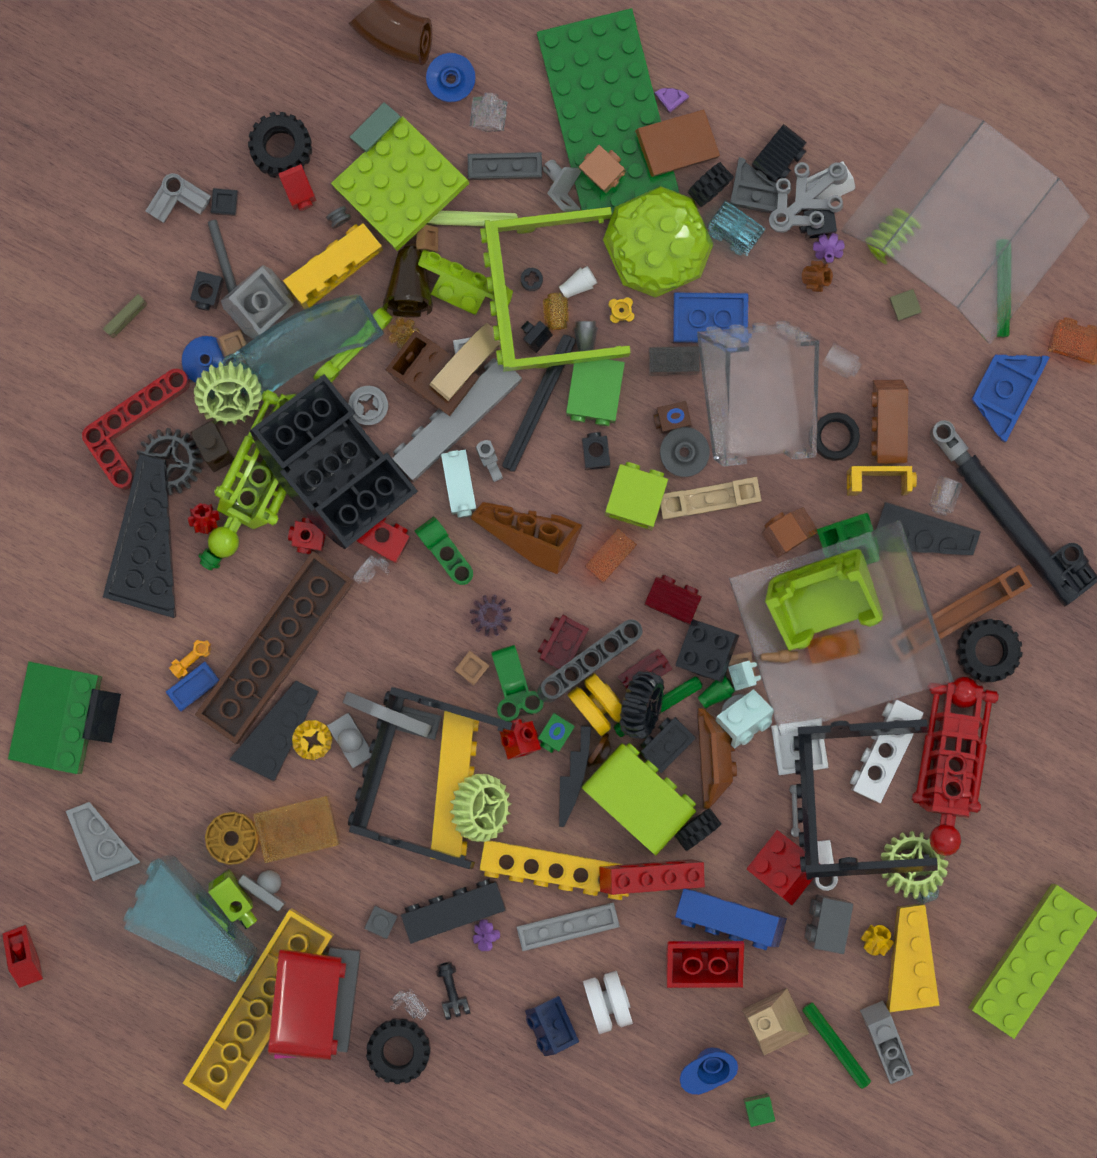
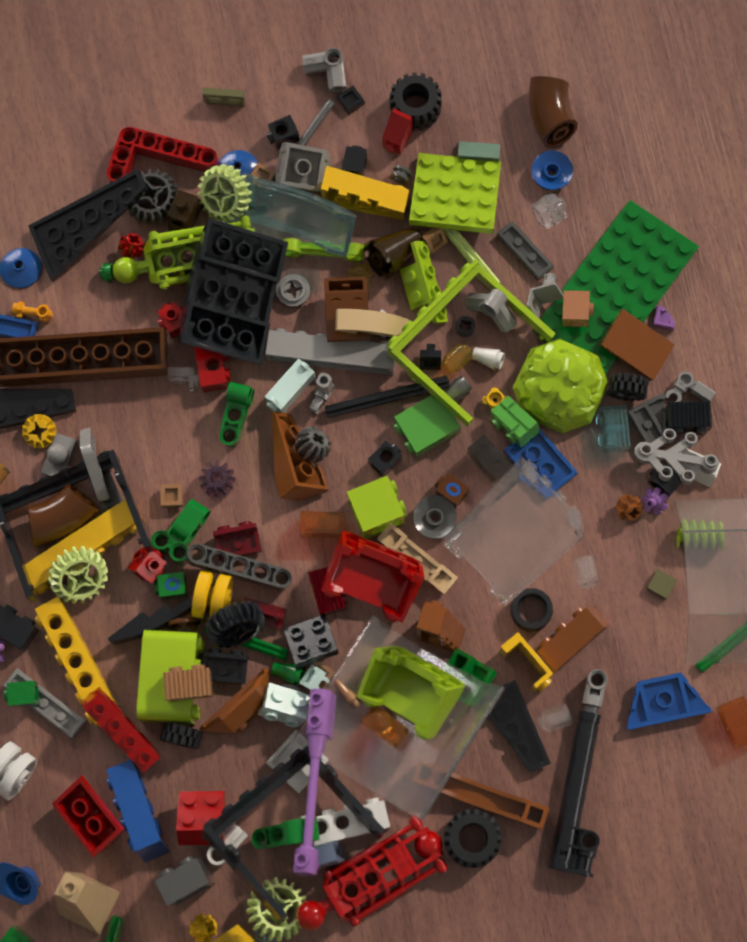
camera: 55 degrees right, 10 degrees down
(149, 637) = (23, 276): none -> blue dish
(291, 249) = (355, 160): none -> black brick
(411, 782) = (60, 515): none -> reddish brown brick
(531, 505) = (312, 444): none -> flat silver gear
(537, 240) = (493, 306): none -> light grey piece
(547, 940) = (22, 694): none -> green brick
(657, 311) = (514, 422): none -> bright green brick
(665, 787) = (188, 684): none -> medium nougat brick
(697, 547) = (373, 575): none -> red windscreen
(744, 130) = (686, 381): none -> light grey bar
(795, 708) = (319, 730): none -> medium lavender bar
(865, 798) = (283, 834): none -> green piece
(902, 788) = (330, 854): none -> sand blue brick

